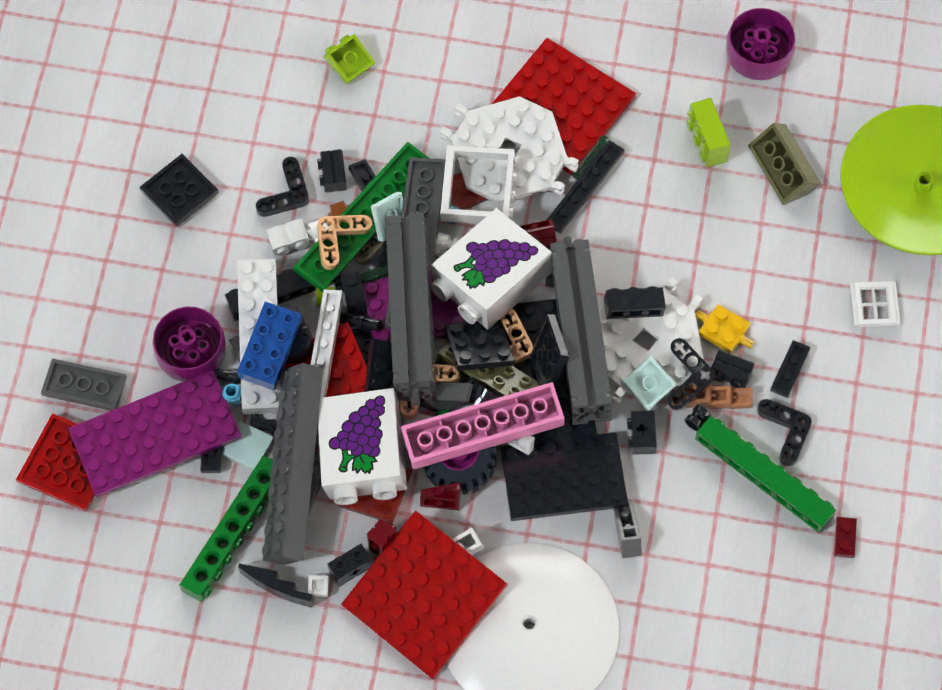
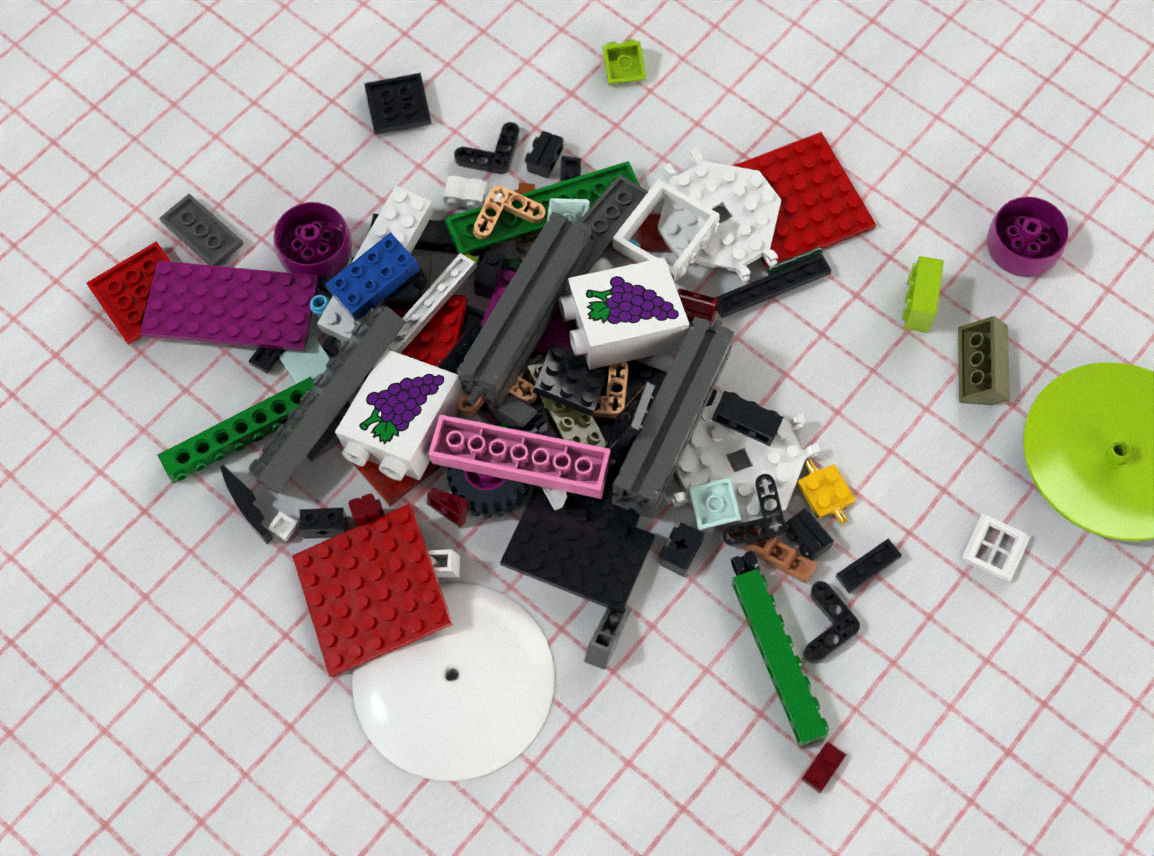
camera: 30 degrees right, 0 degrees up
(362, 322) = (479, 302): black pin -> none

